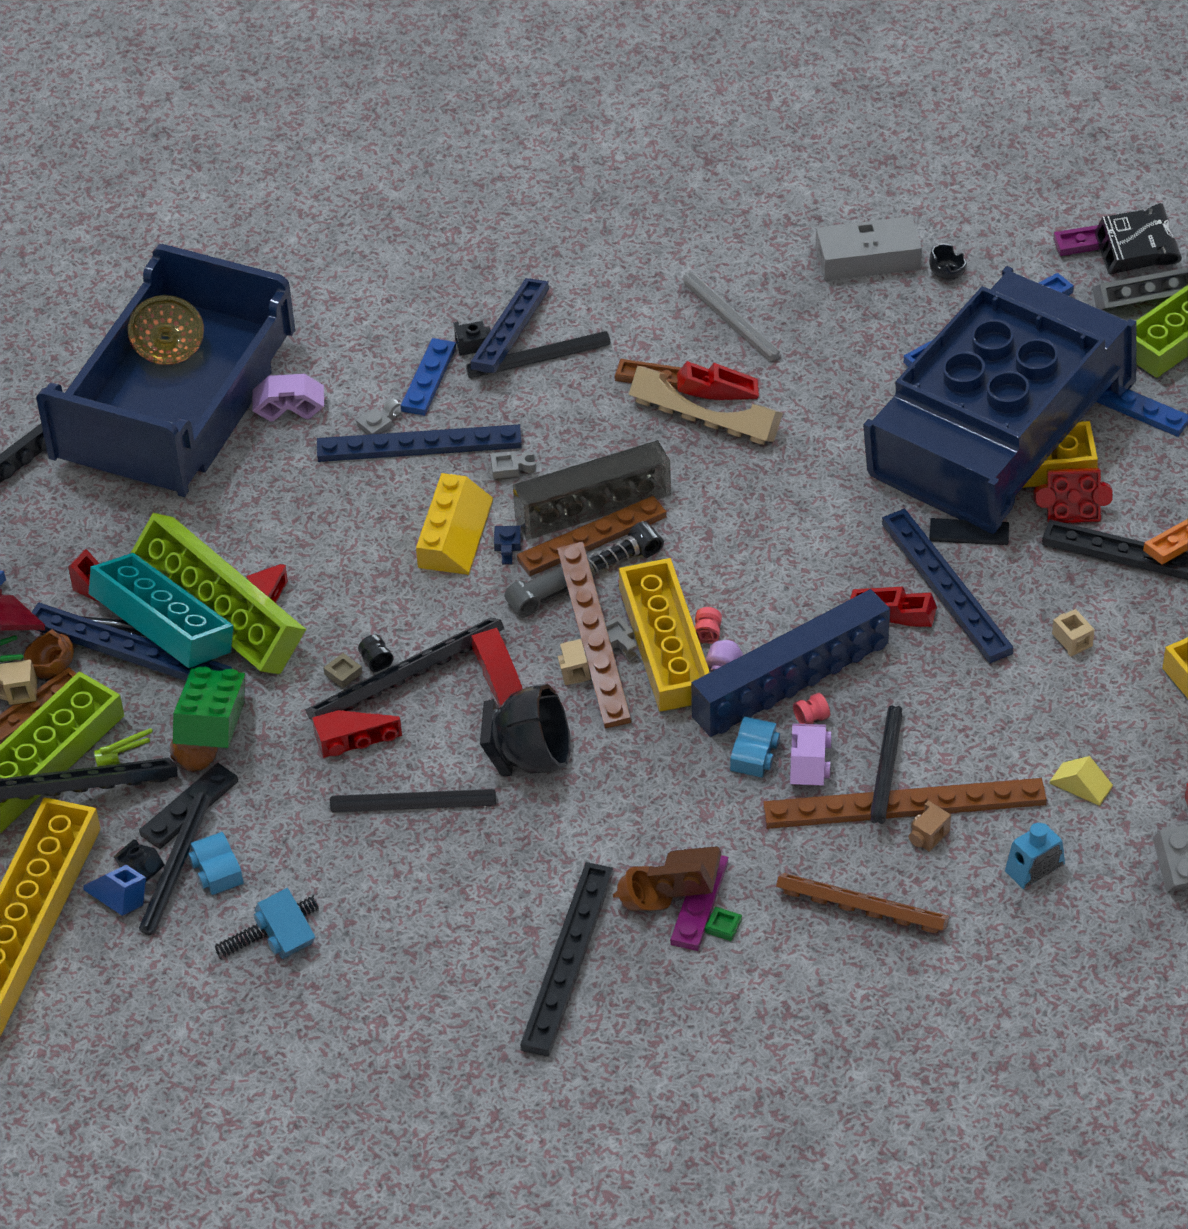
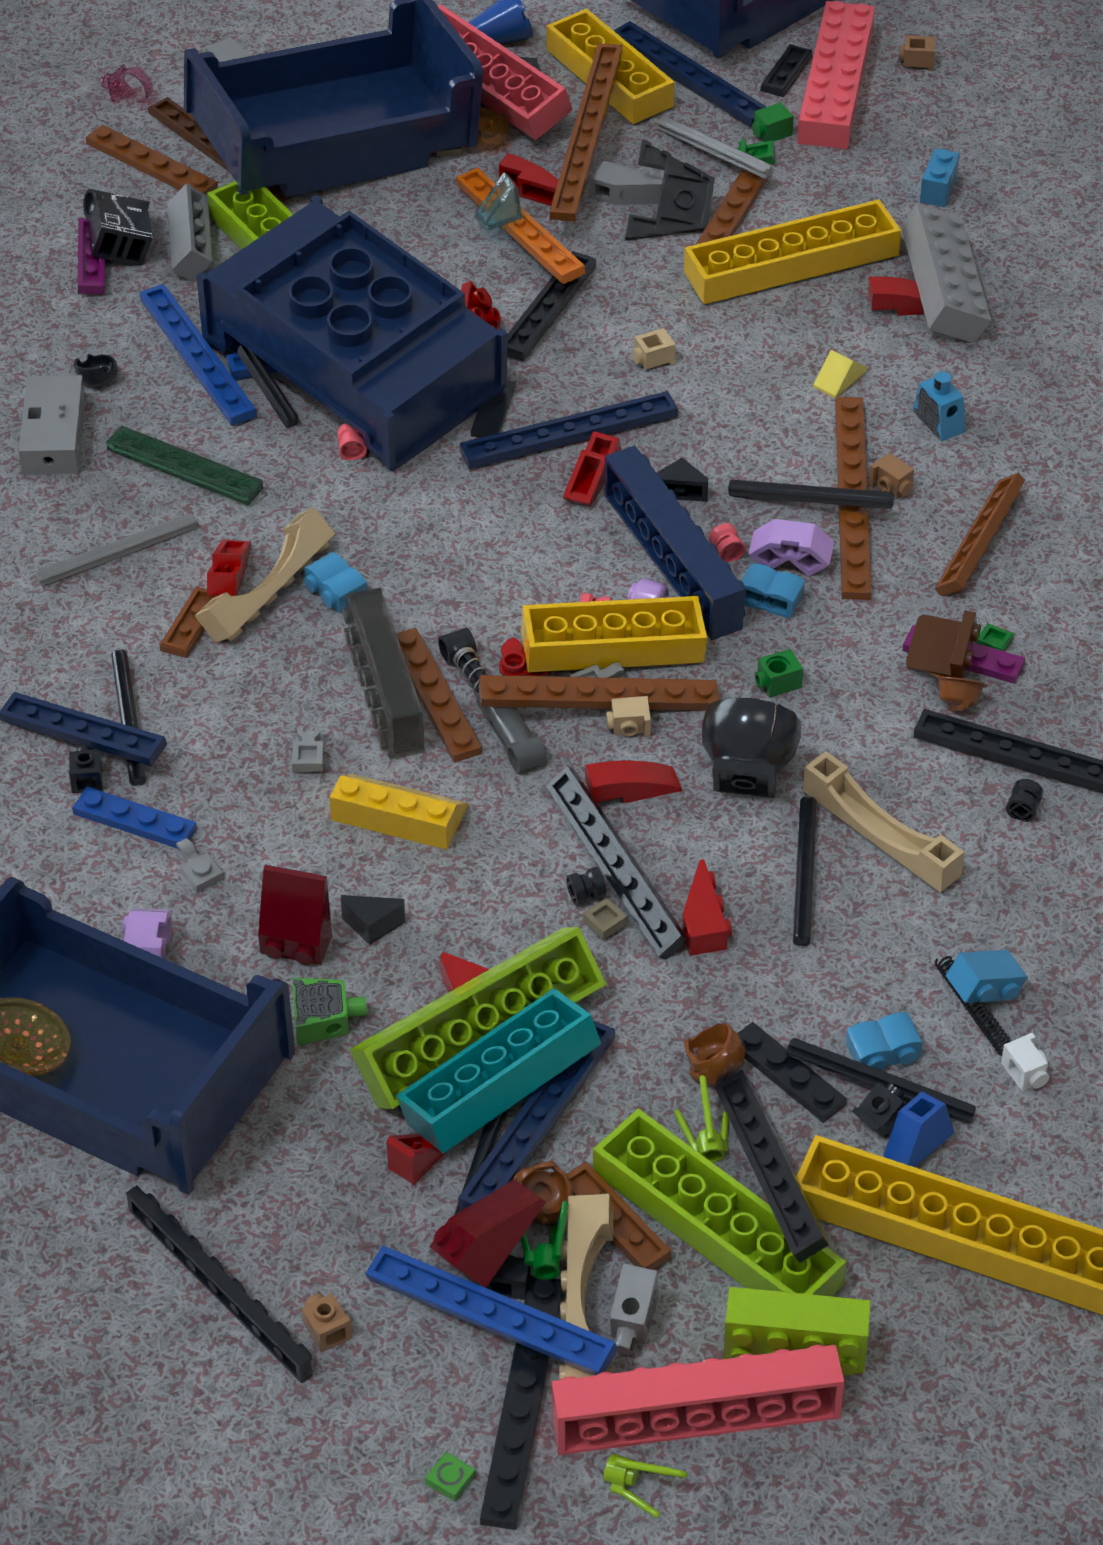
camera: 85 degrees left, 0 degrees up
(197, 961) = (1025, 1063): none -> white brick
(209, 707) = (674, 1020): green brick -> none
(232, 508) = (323, 1009): none -> torso
(307, 473) = (294, 915): none -> dark red slope
(327, 524) = (372, 915): none -> black slope
(419, 443) = (246, 836): dark blue plate -> none
(427, 878) = (930, 858): none -> tan arch
(507, 540) = (428, 764): dark blue plate -> none
(508, 950) = (1024, 800): none -> black wheel
(645, 760) = (779, 673): none -> green brick
(710, 452) = (333, 580): none -> dark azure brick
(840, 339) = (185, 465): none -> clear green plate
(890, 668) = (685, 481): none -> black slope

